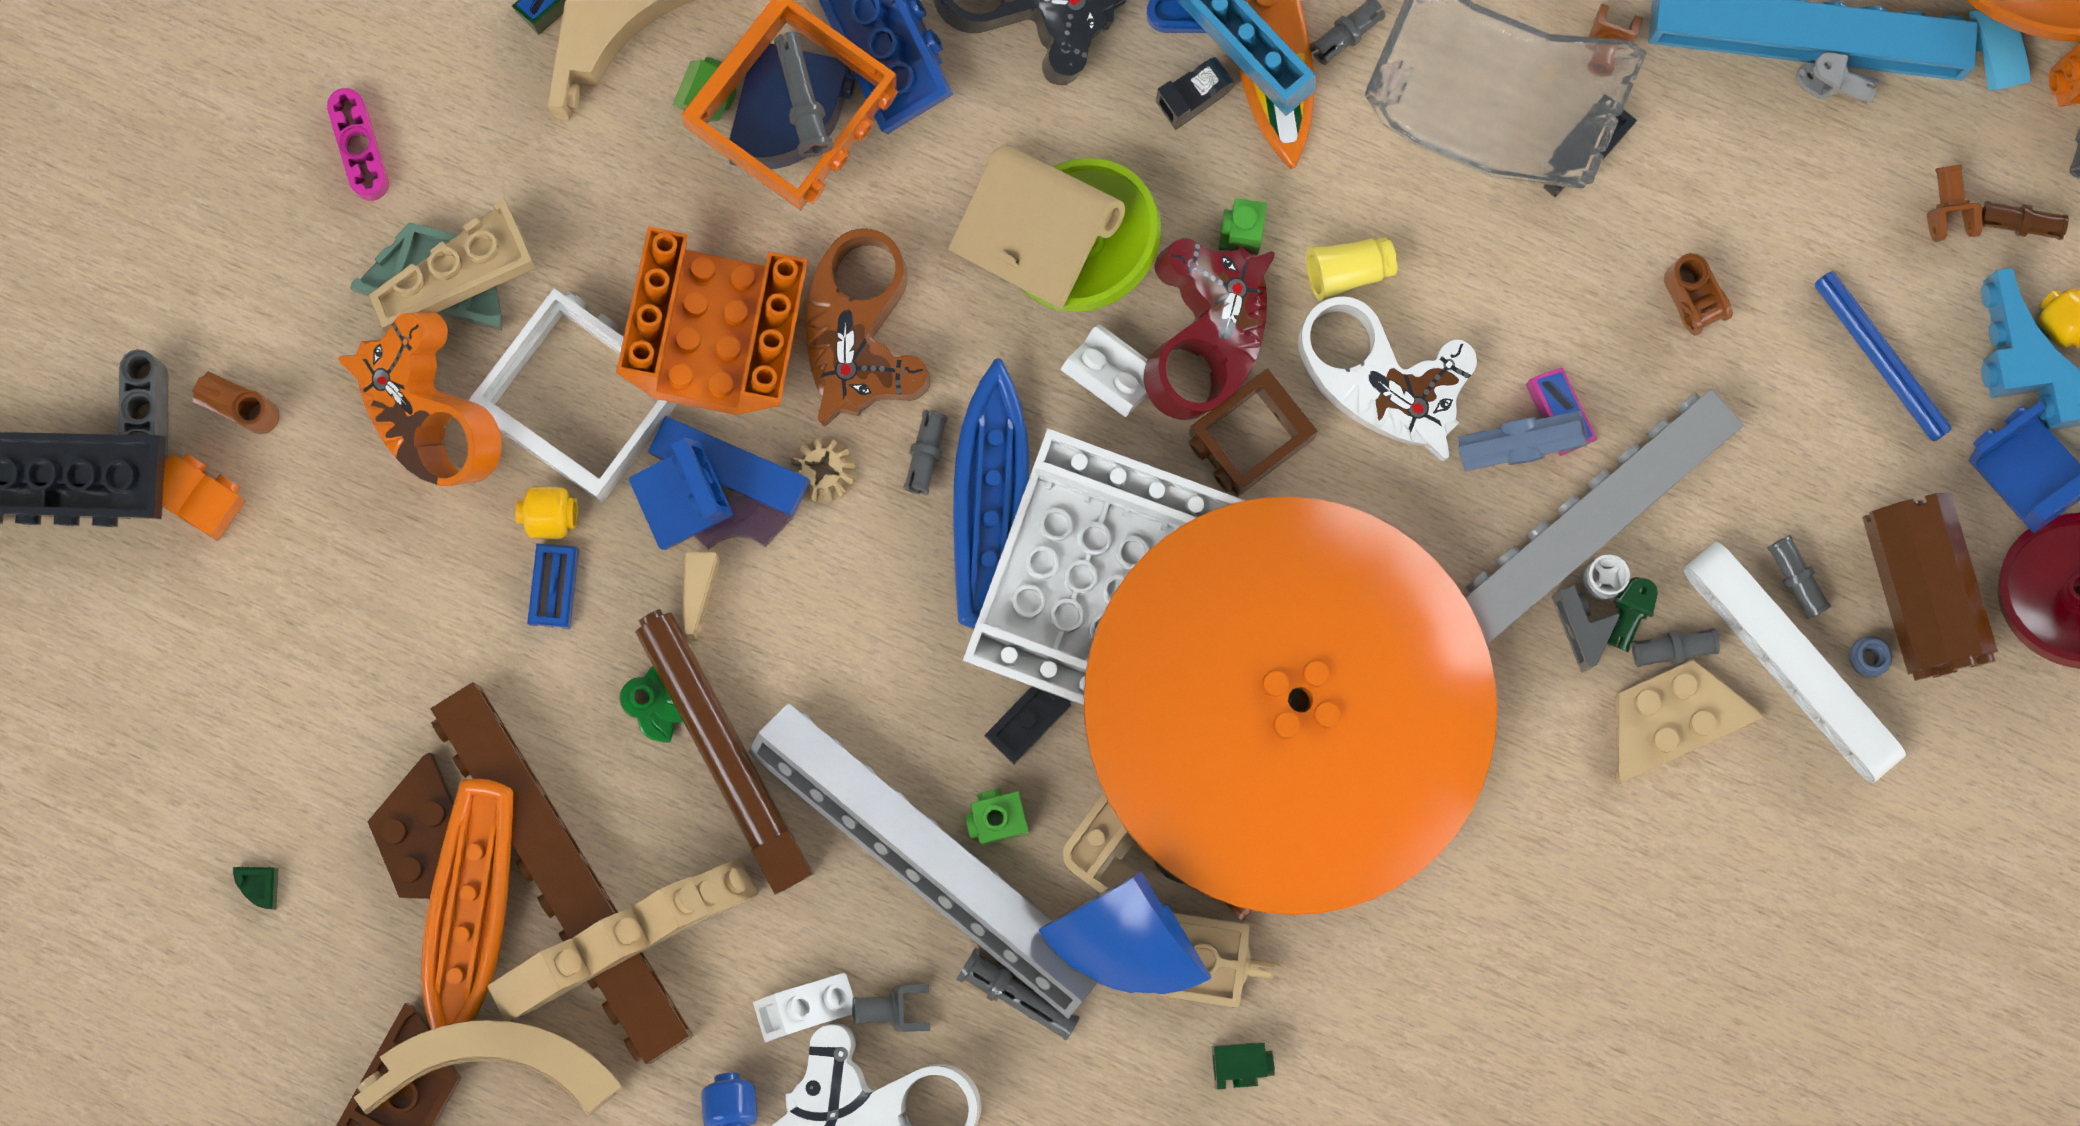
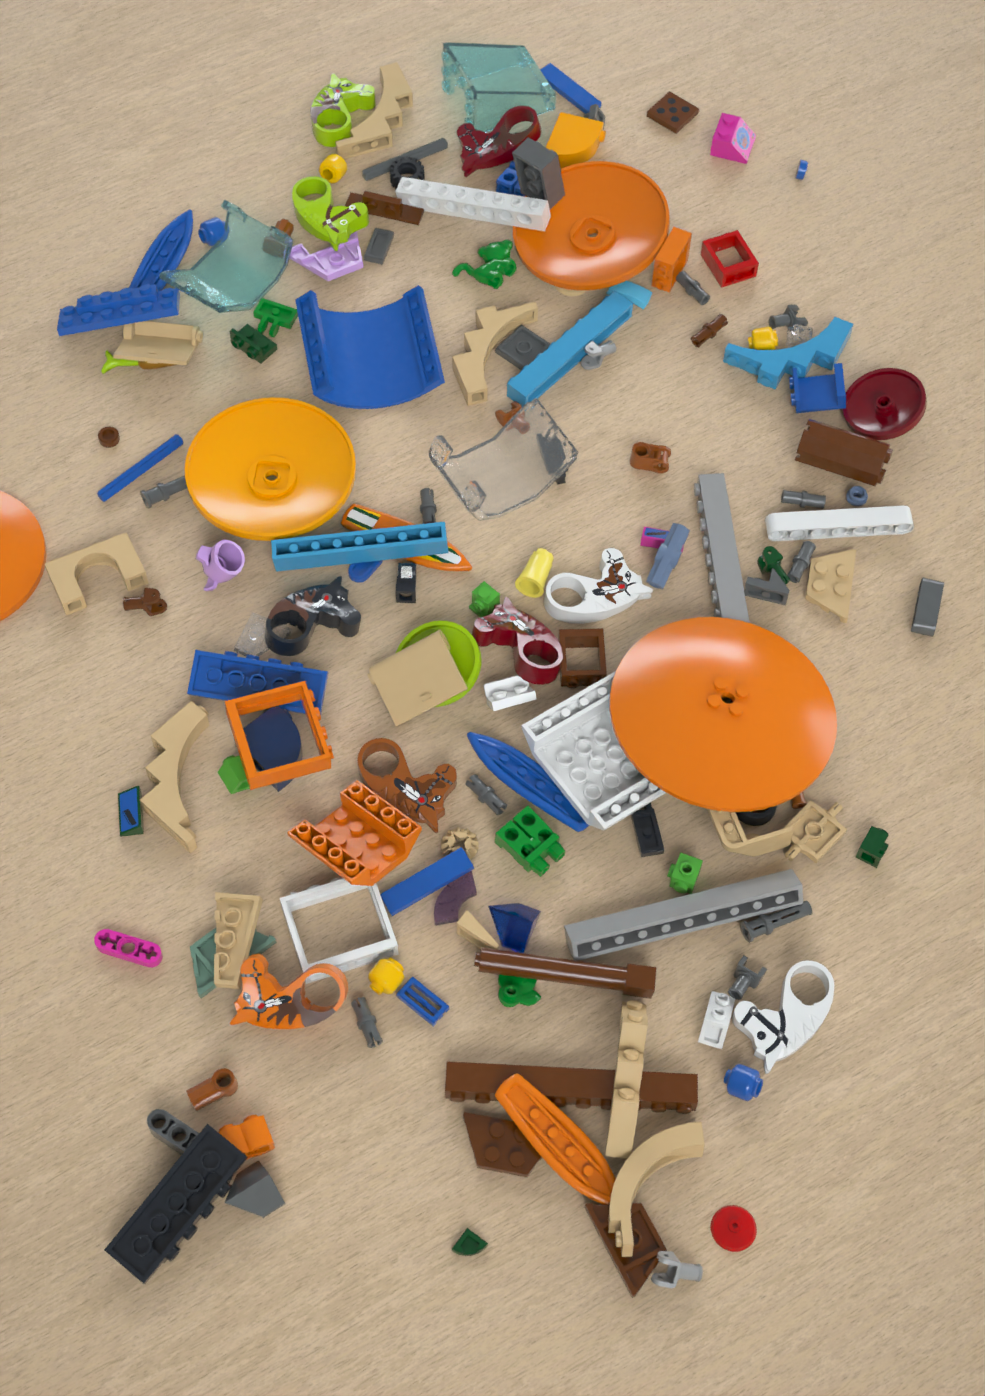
camera: 55 degrees left, 20 degrees down
(138, 558) = (255, 1191): none -> dark grey slope
(467, 533) = (366, 1022): none -> dark grey pin
(680, 494) = (426, 907): blue bracket -> none
(753, 630) = (514, 924): none -> clear blue slope
(806, 112) = (293, 724): dark grey pin -> none
(881, 576) = (530, 841): none -> green hips
(1127, 941) = (787, 843): blue brick -> none
(1611, 571) = (751, 565): white wheel -> none
(1736, 893) = (927, 607): none -> dark grey beam
(1883, 356) = (729, 412): blue axle -> none
(1953, 200) = (682, 348): dark orange piece -> none

